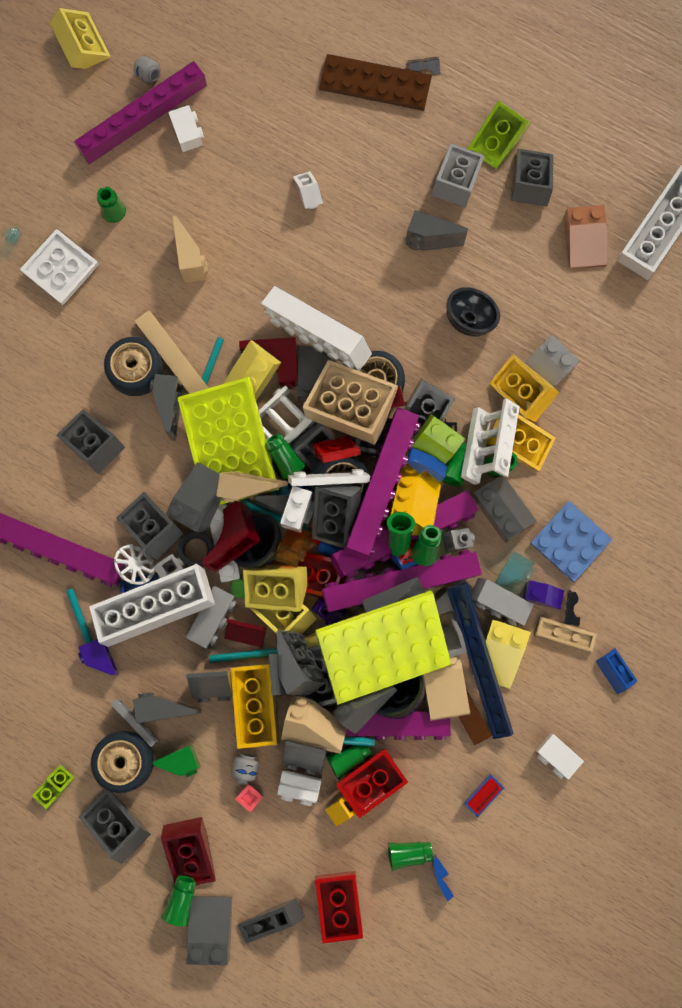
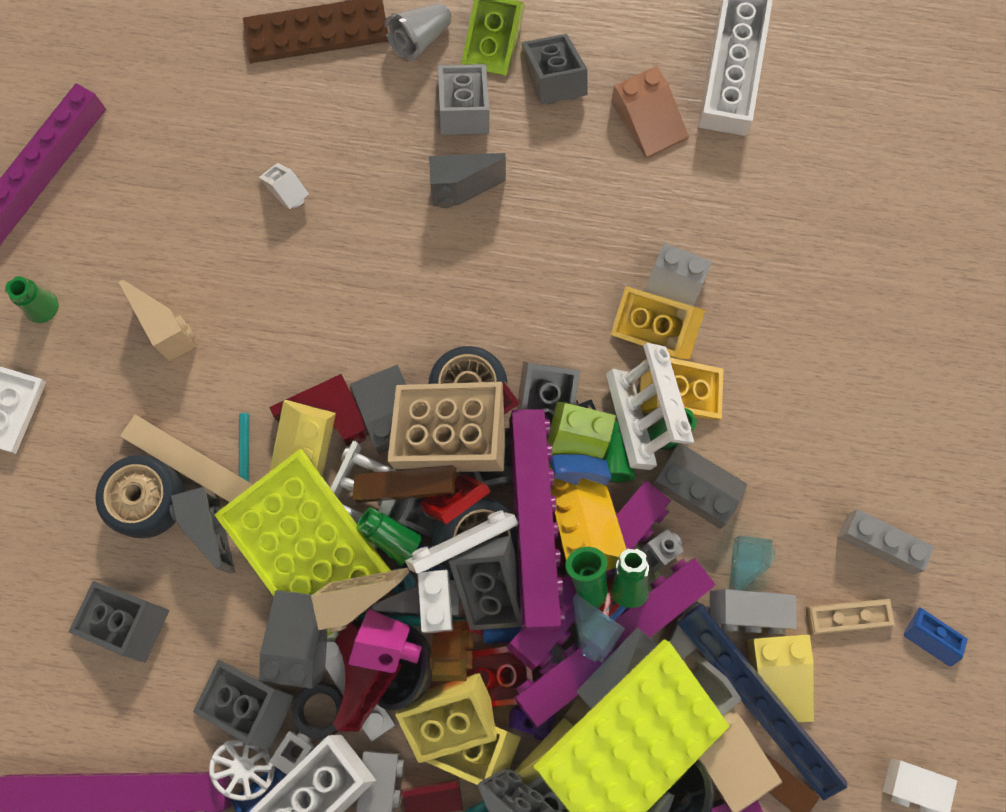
camera: 25 degrees left, 5 degrees down
(146, 69) = (20, 117): light grey head -> none
(186, 129) = (97, 169): white brick -> none
(237, 588) = (397, 740): bright green tile -> none
(252, 522) = (382, 644): none -> dark pink torso
(307, 427) = (404, 484): none -> reddish brown tile
(316, 328) = (364, 351): white brick -> none
(390, 568) = (594, 630): none -> clear light blue slope
(446, 111) = (416, 29): none -> light grey cone
(472, 312) = (553, 254): black hat -> none
(543, 594) = (798, 576): dark purple slope -> none
(570, 617) = (844, 590): black piece -> none
(571, 541) = (801, 492): medium blue plate -> none
(611, 596) = (886, 542): none -> light grey brick

